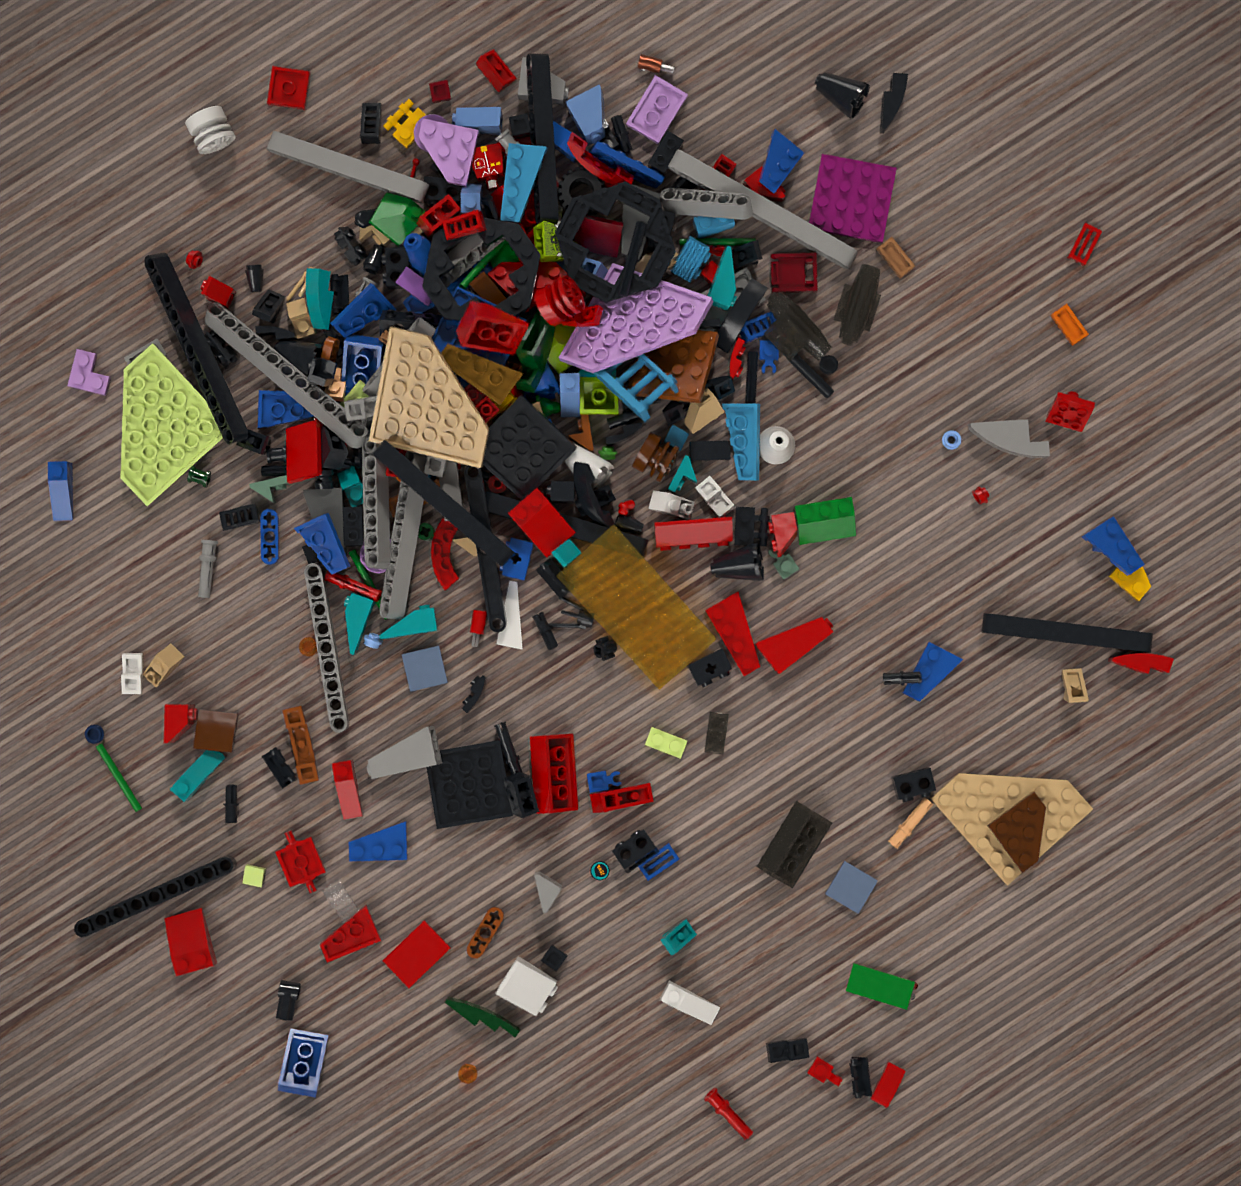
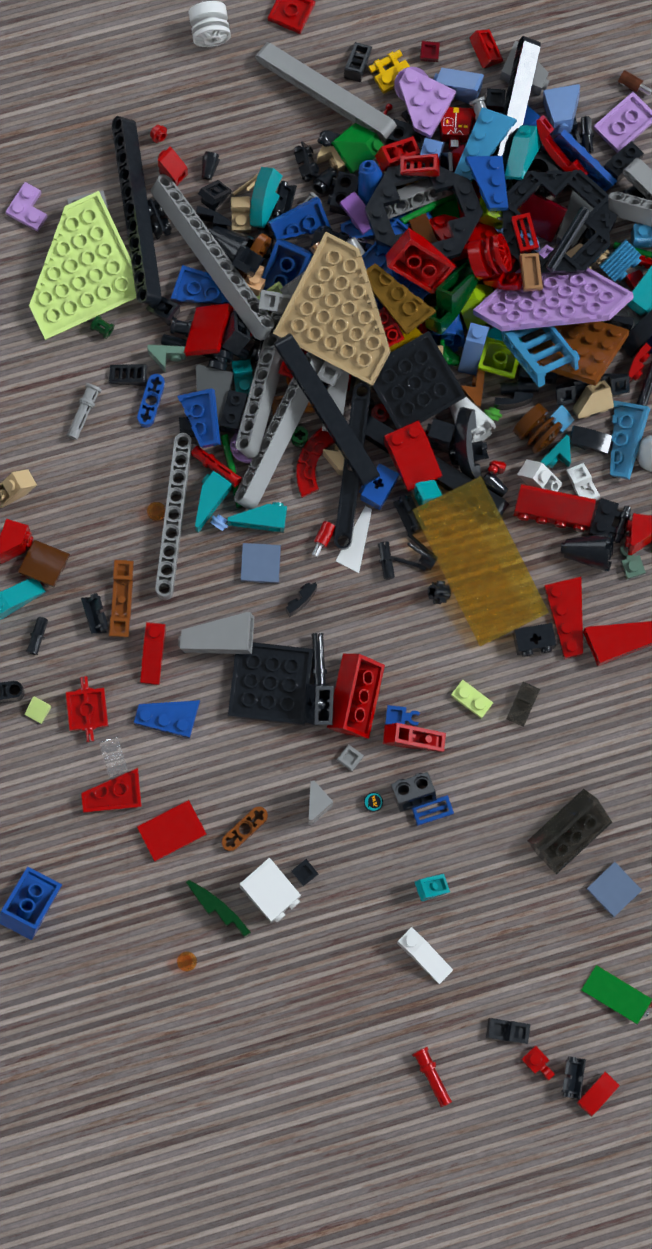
camera: 15 degrees right, 10 degrees down
(287, 994) = (35, 833): black piece -> none
(538, 218) = (490, 177): none -> blue wing
(562, 175) = (523, 150): none -> teal slope
(565, 834) = (350, 758): none -> light grey tile
(595, 278) = (528, 248): none -> red tile
(605, 303) = (530, 272): none -> medium nougat tile

